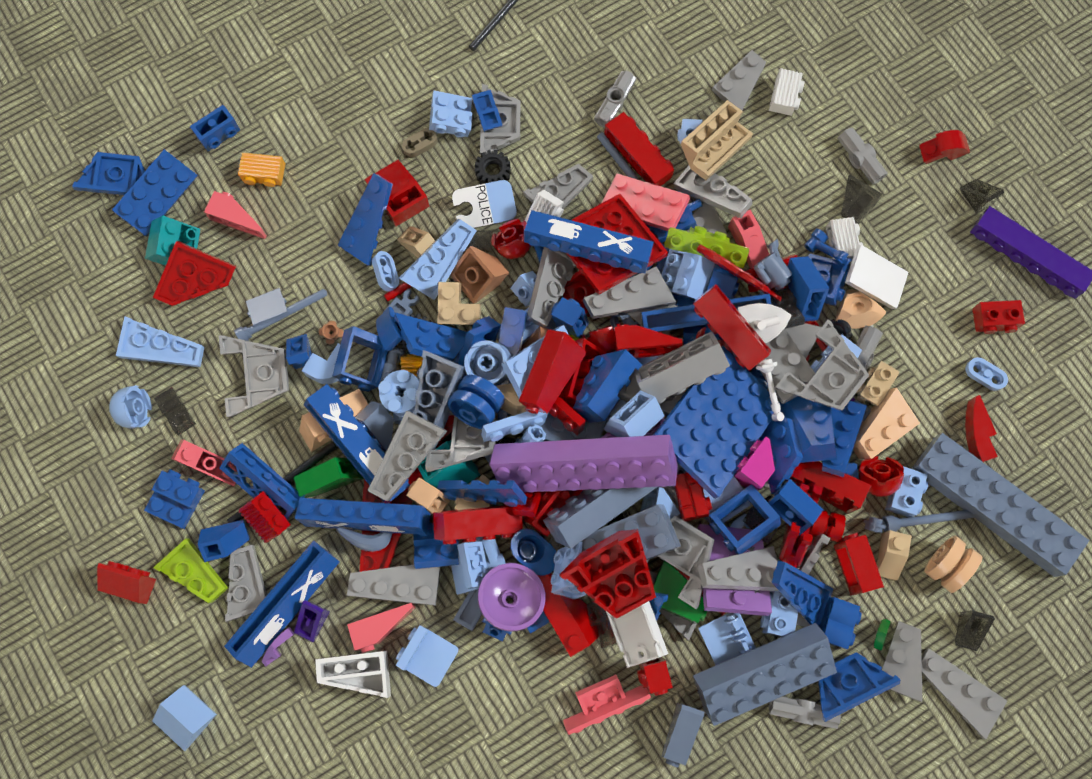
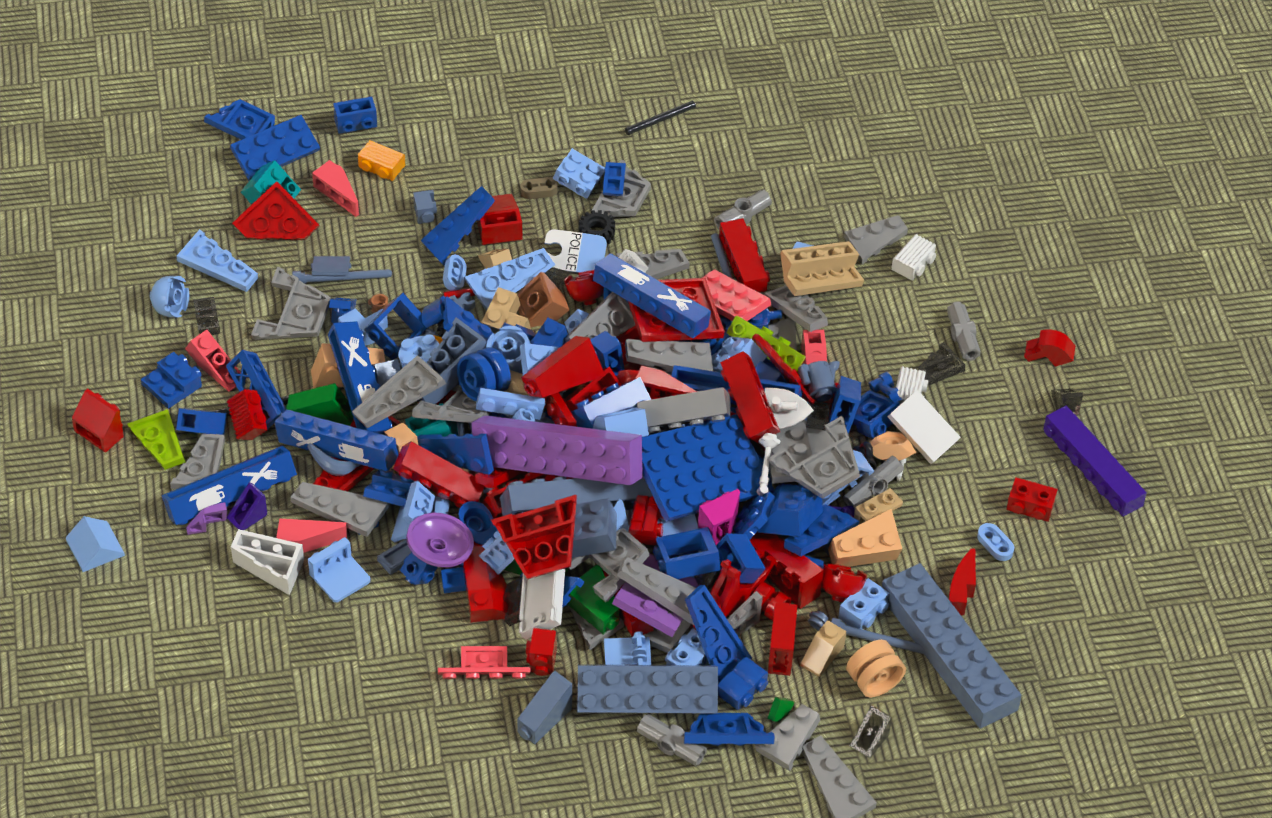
camera: 20 degrees right, 25 degrees down
(325, 206) = (424, 206): none -> sand blue brick

